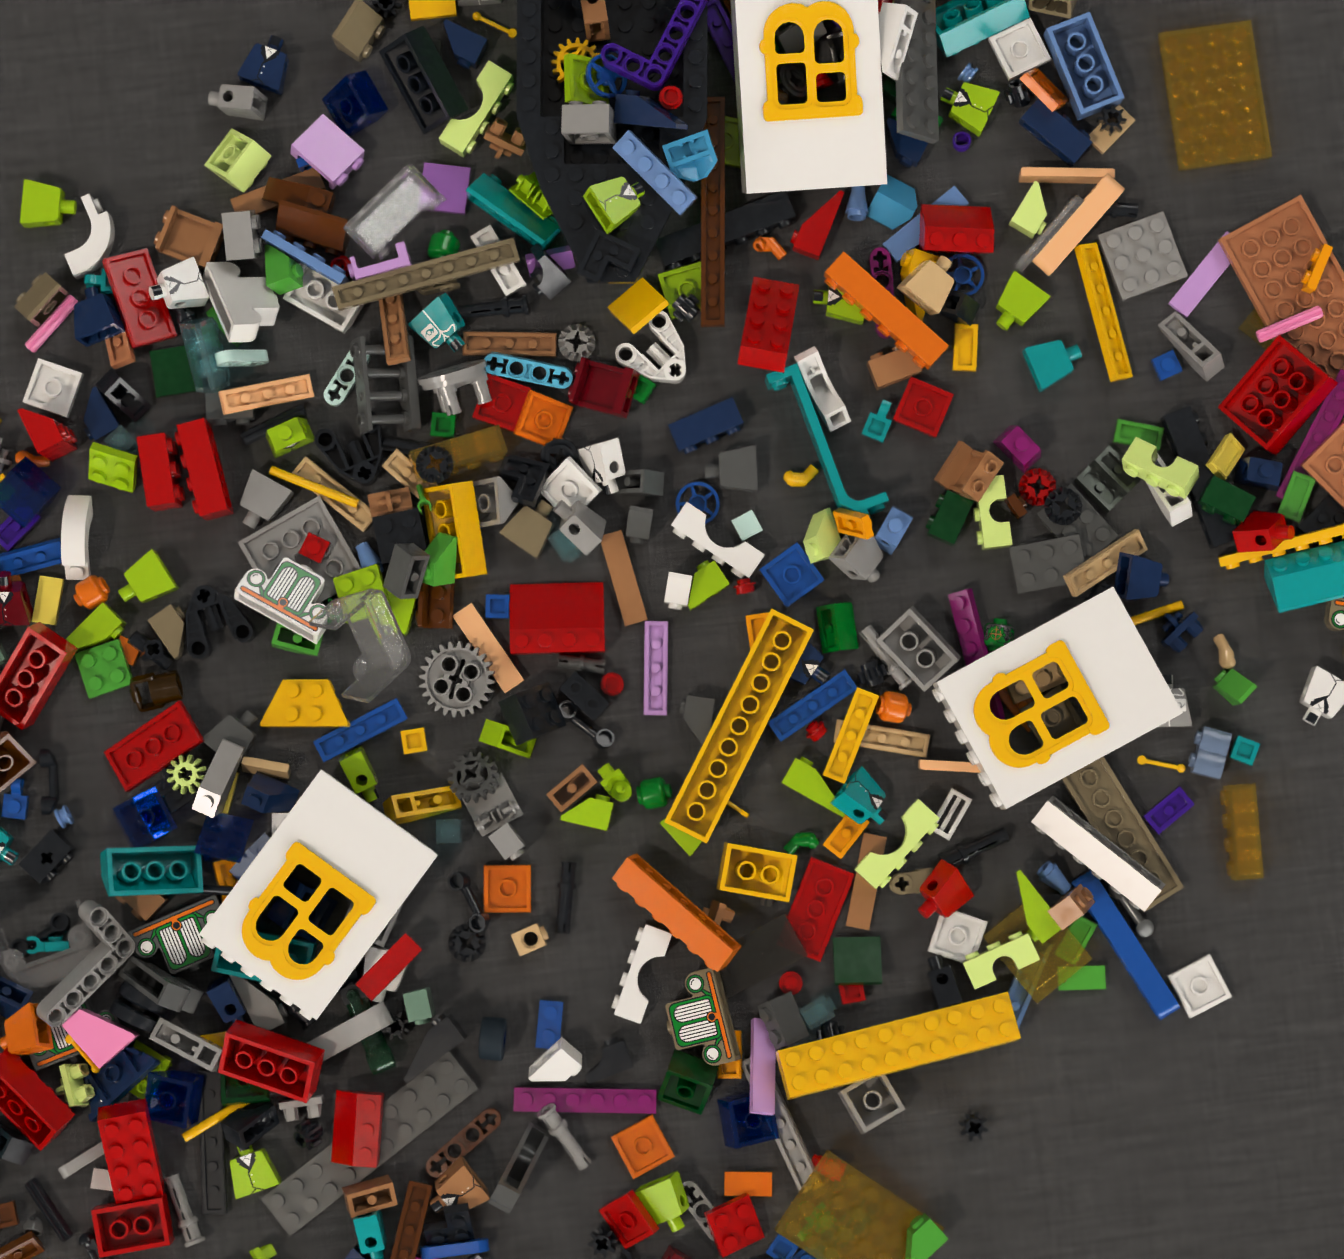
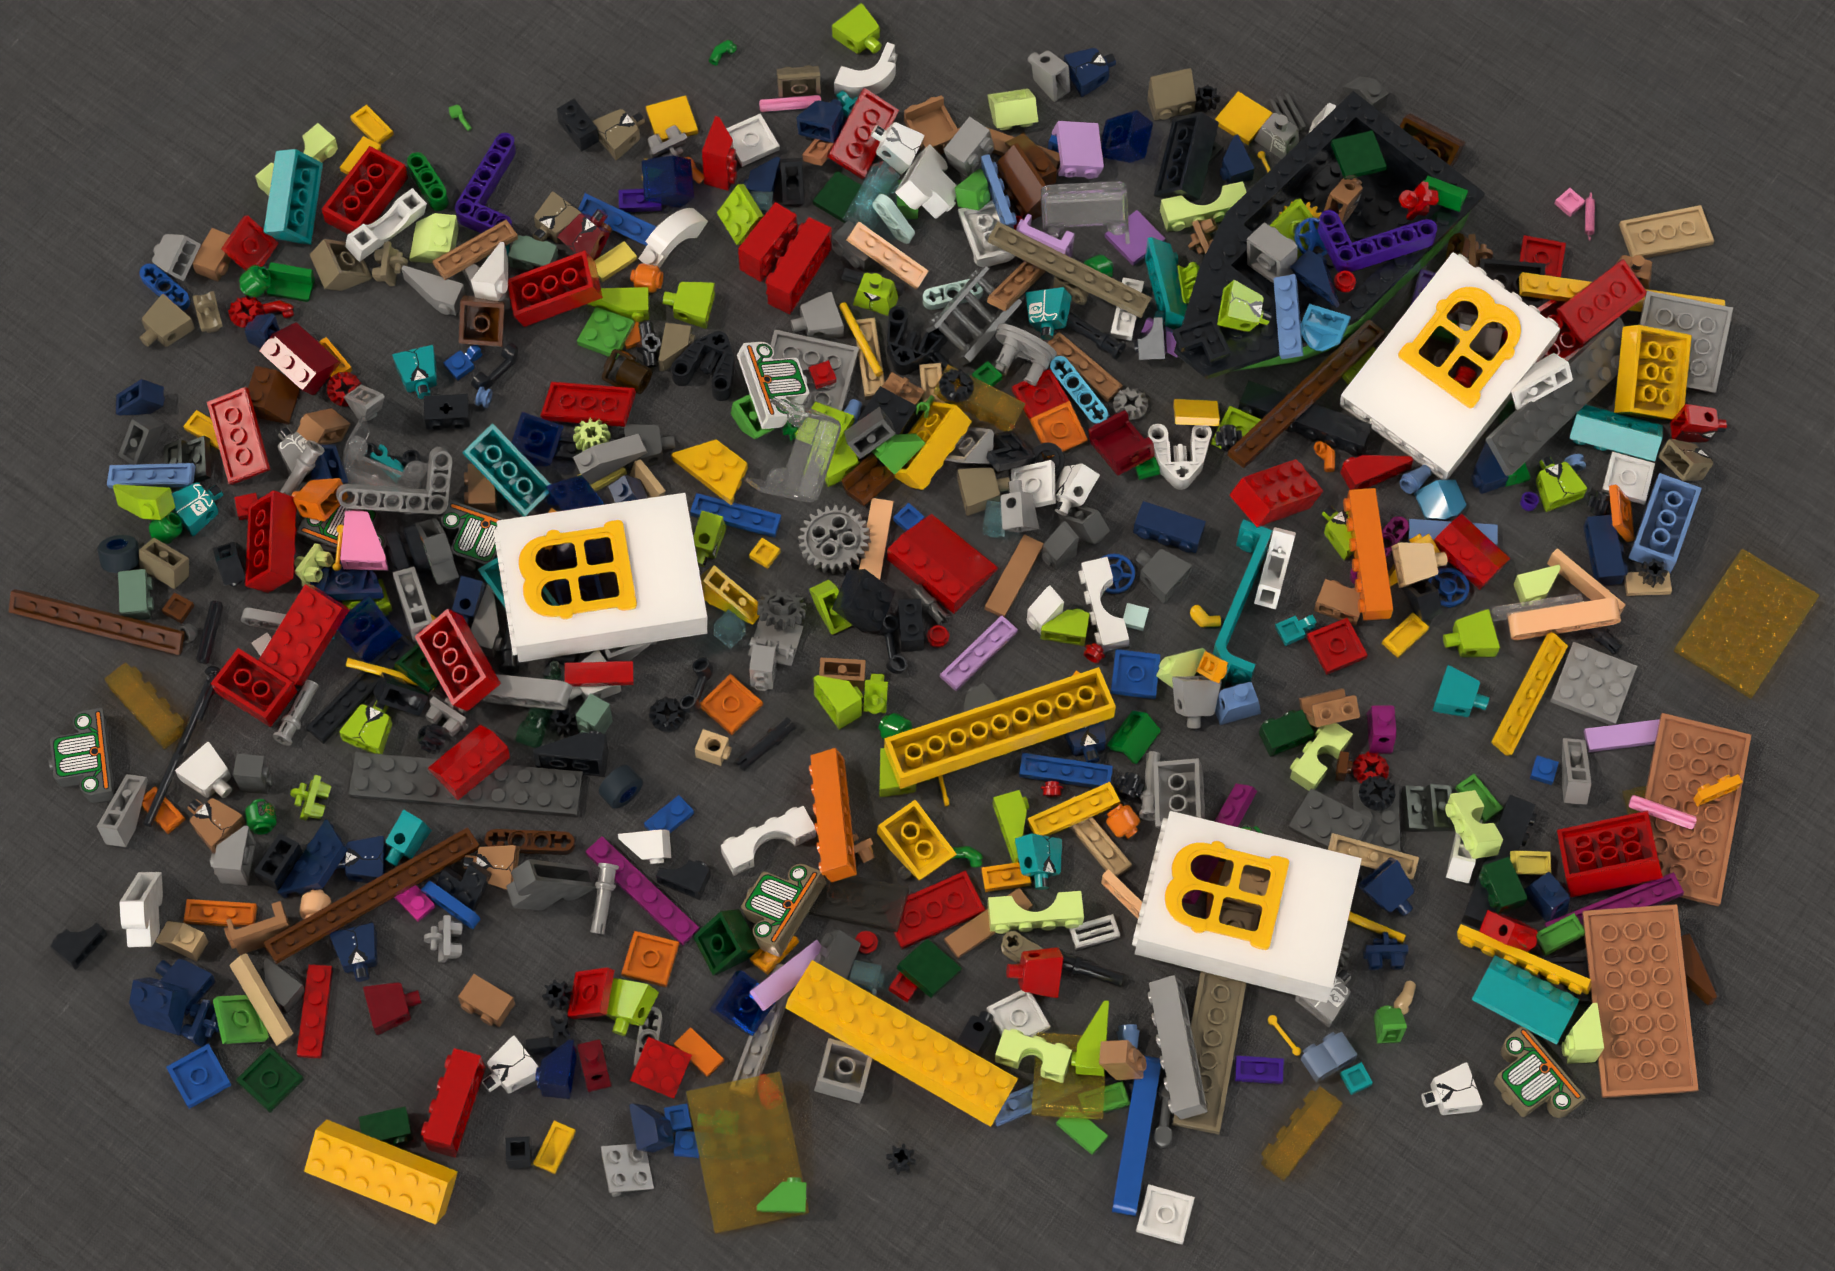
camera: 40 degrees right, 20 degrees down
(369, 1196) = (430, 812): medium nougat brick -> none

